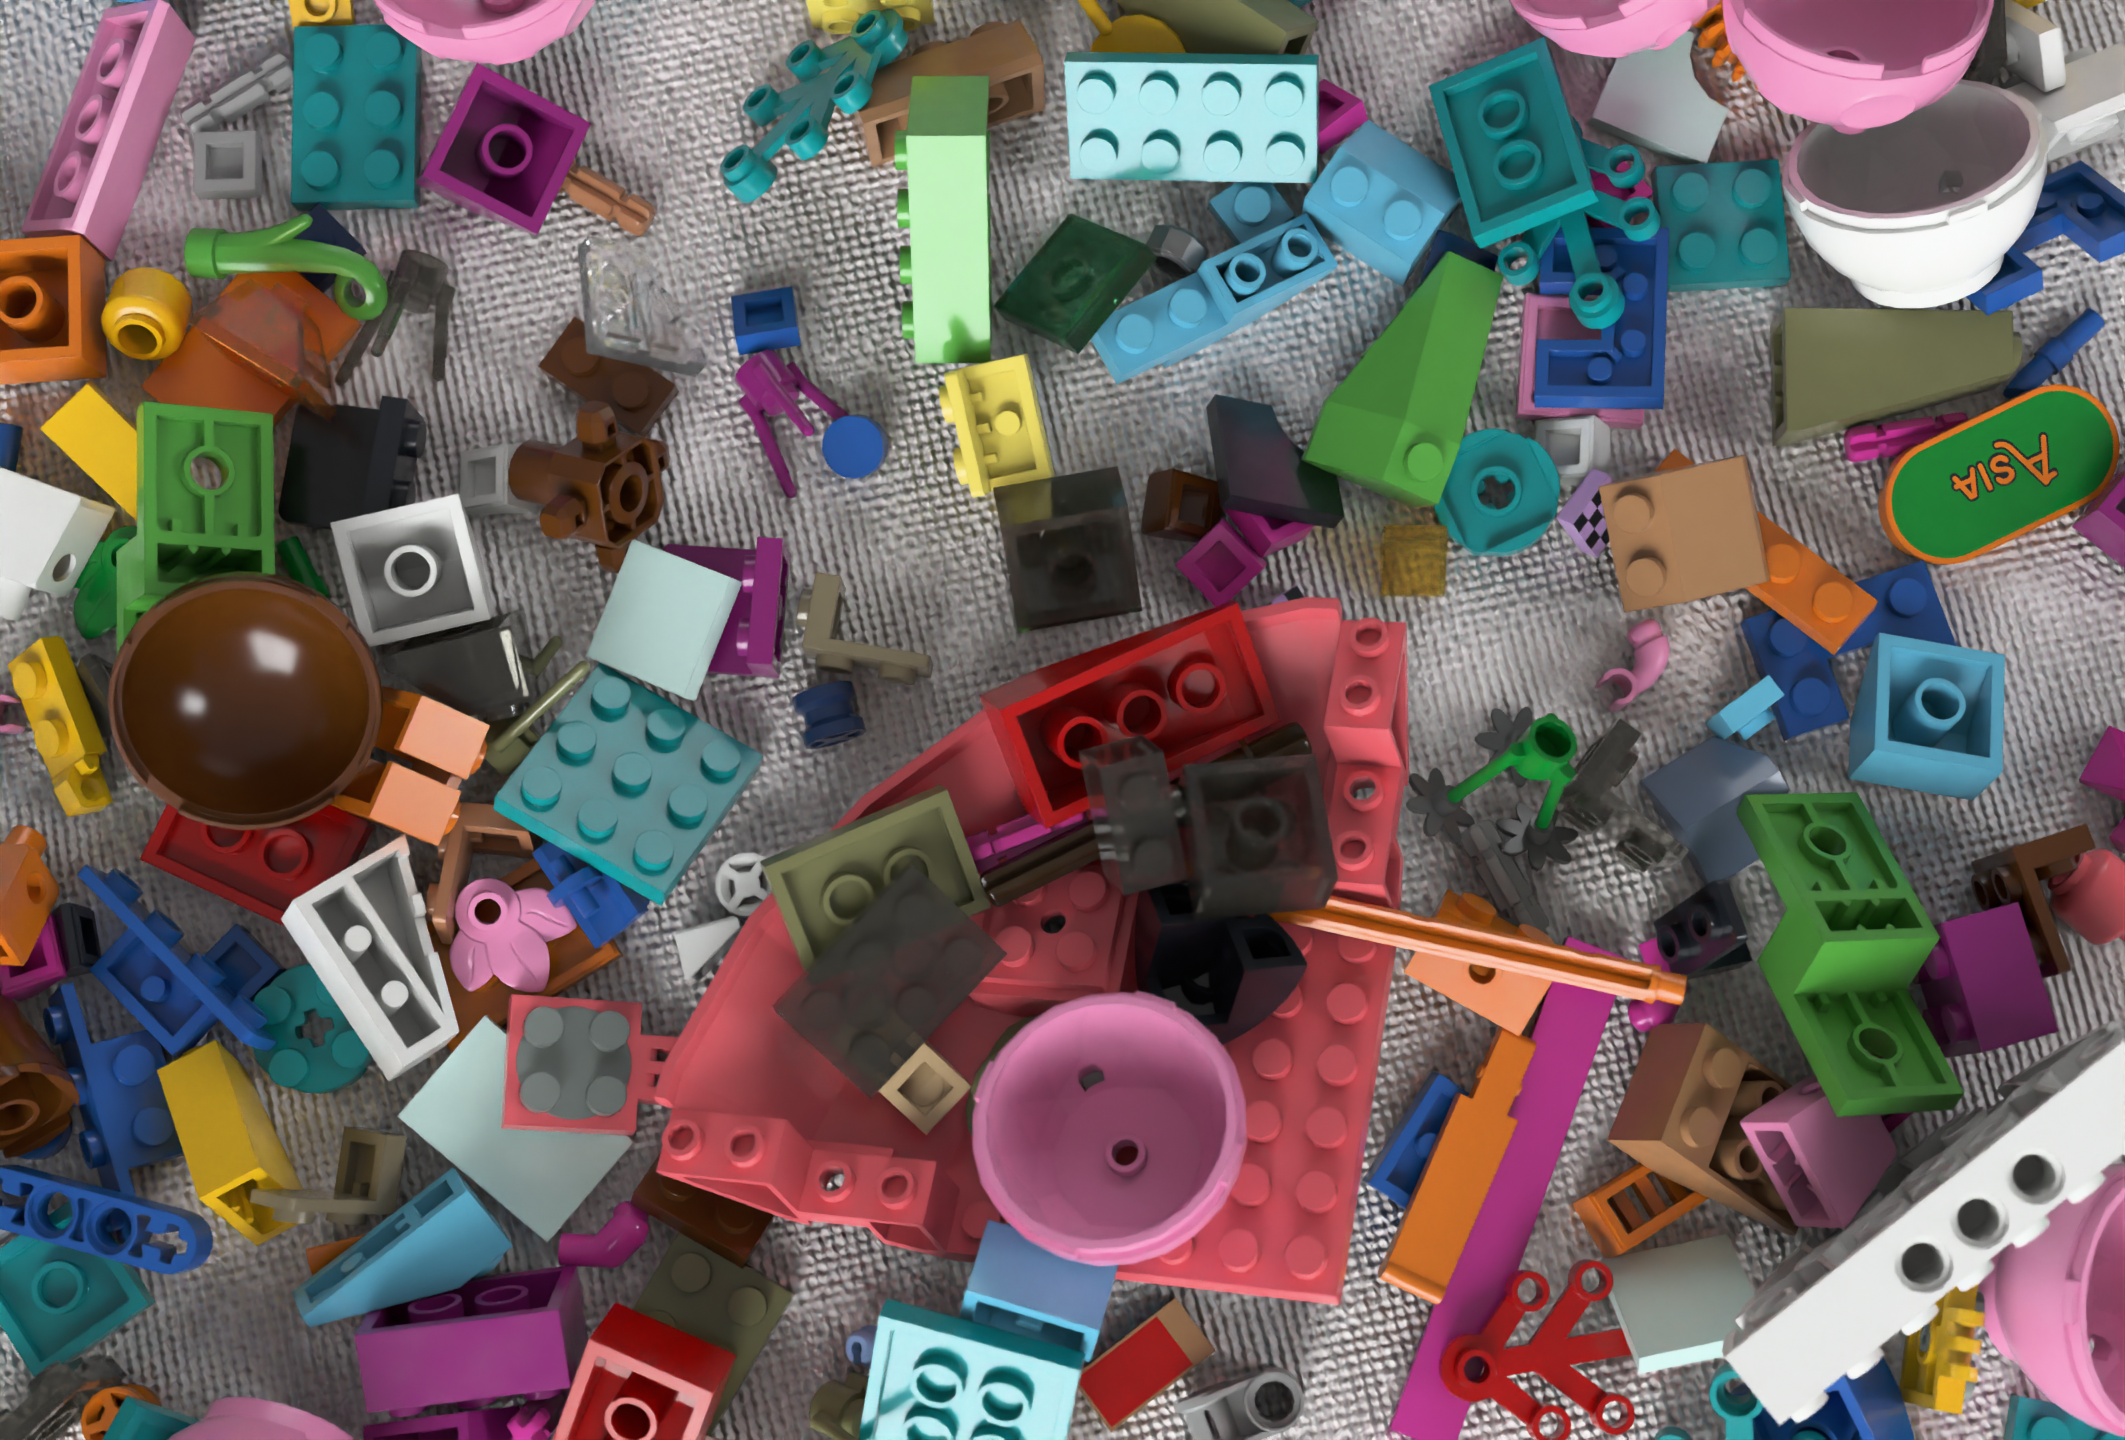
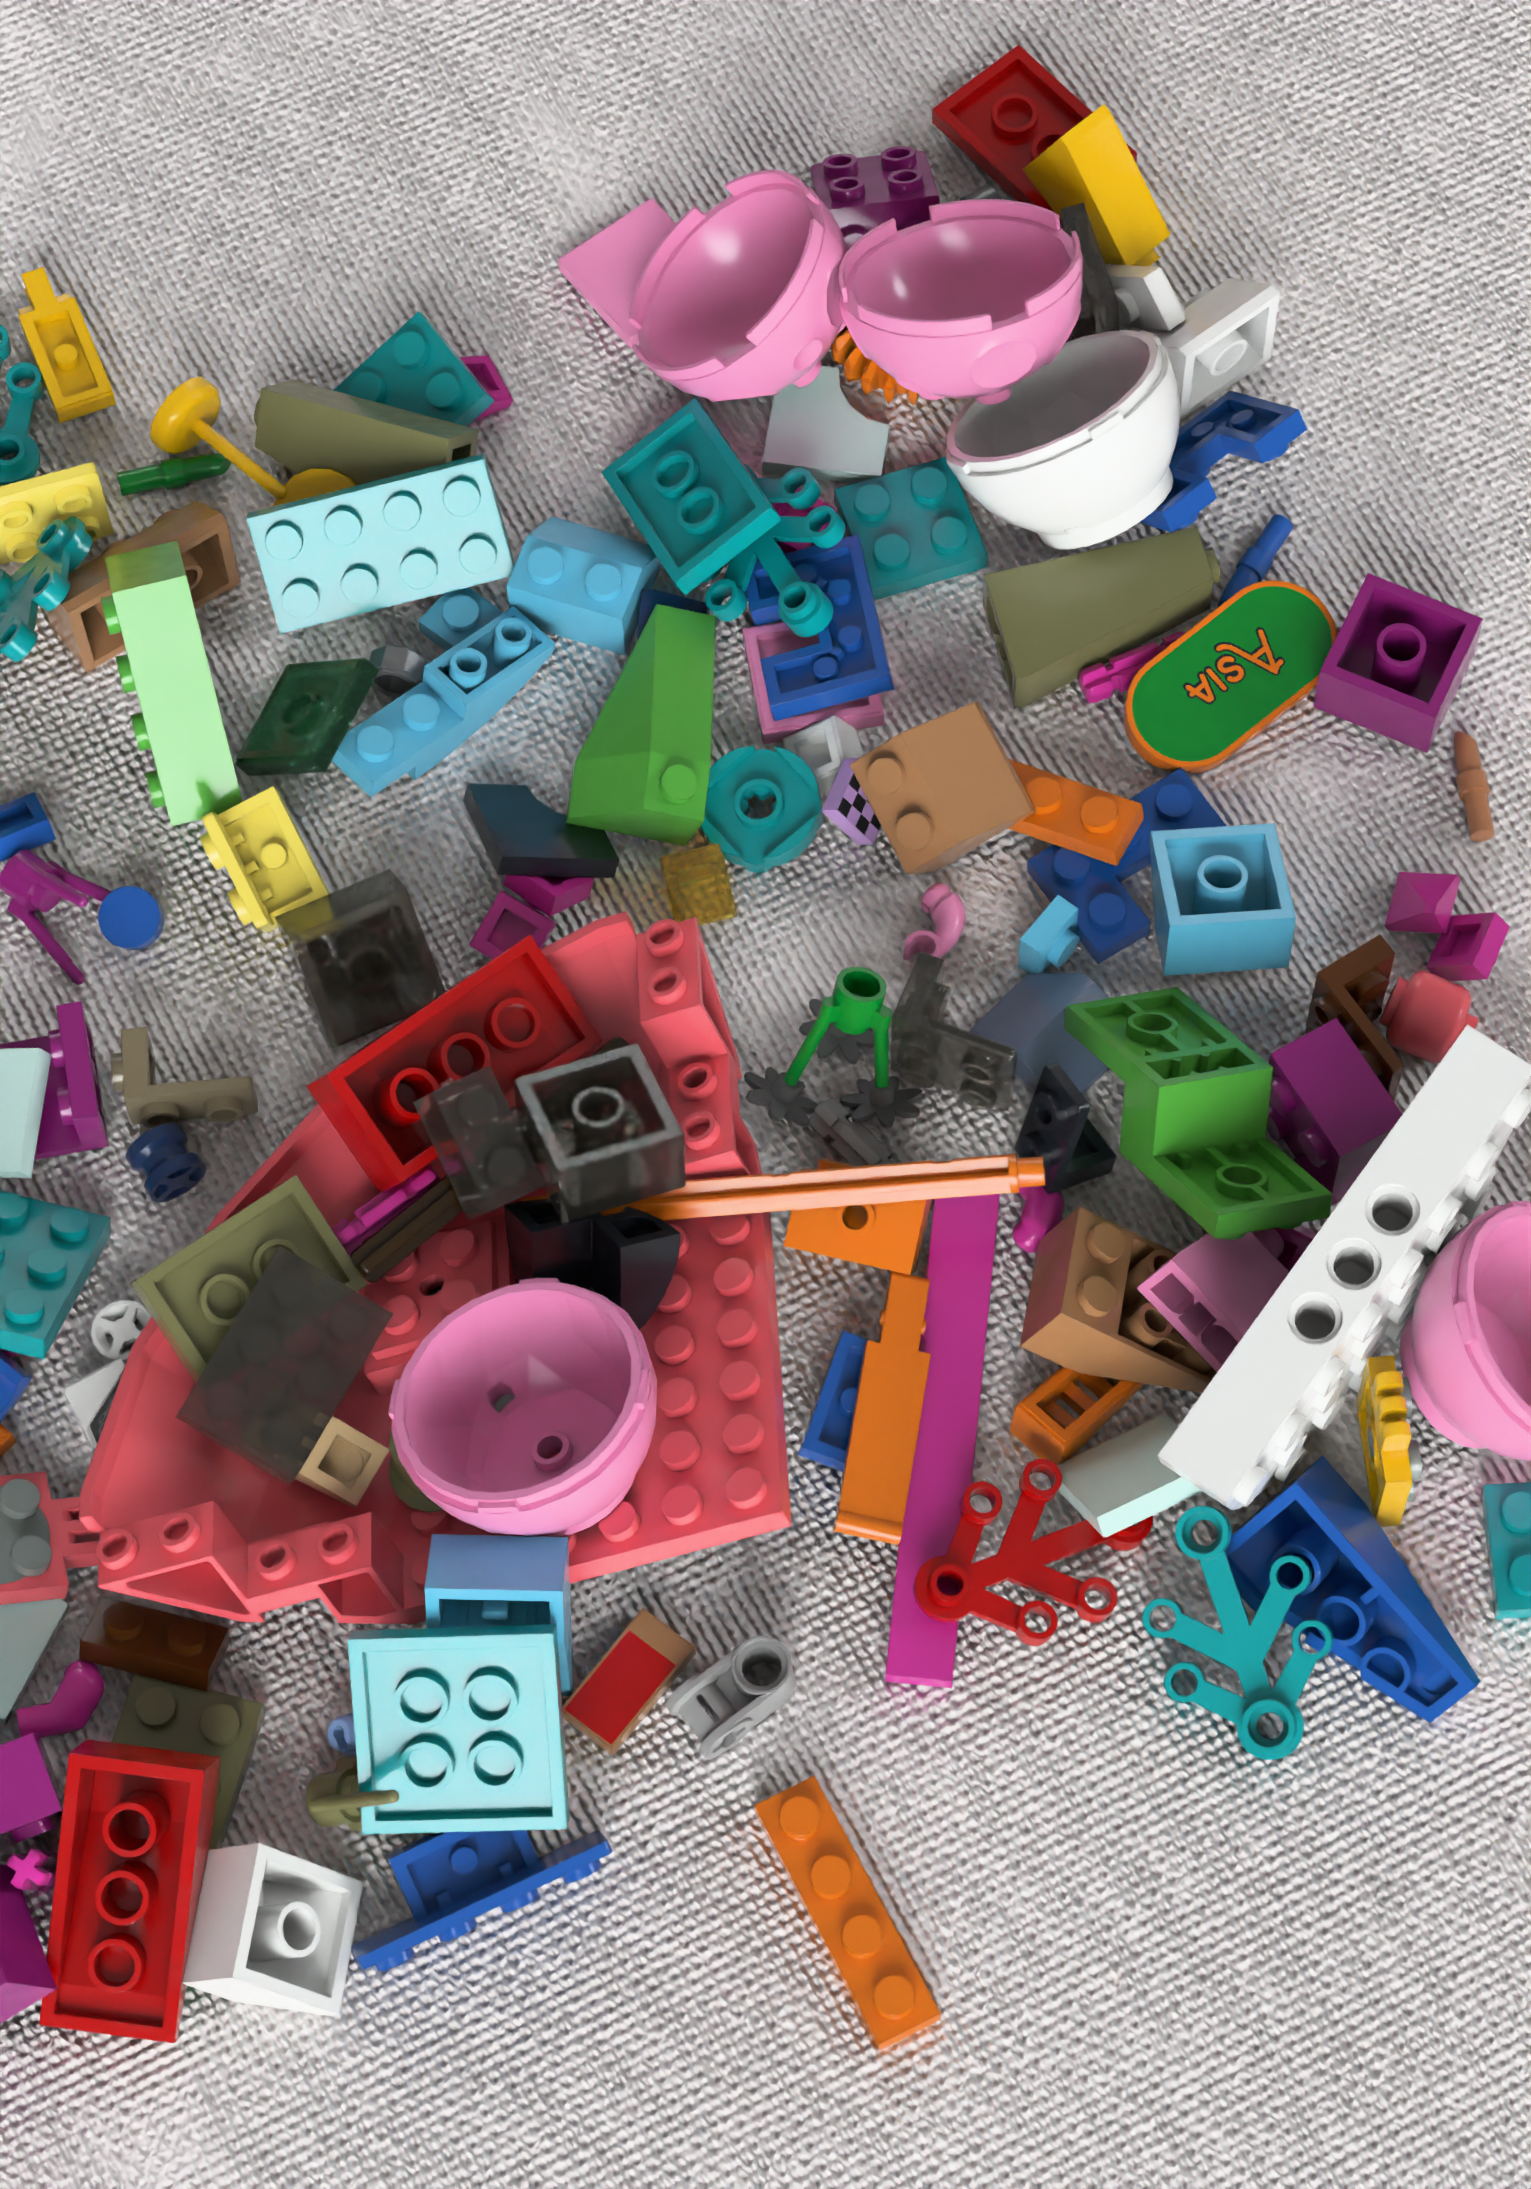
camera: 15 degrees left, 15 degrees down
(1180, 506) = (460, 895): reddish brown slope -> none
(1338, 114) = (521, 514): dark pink plate -> none

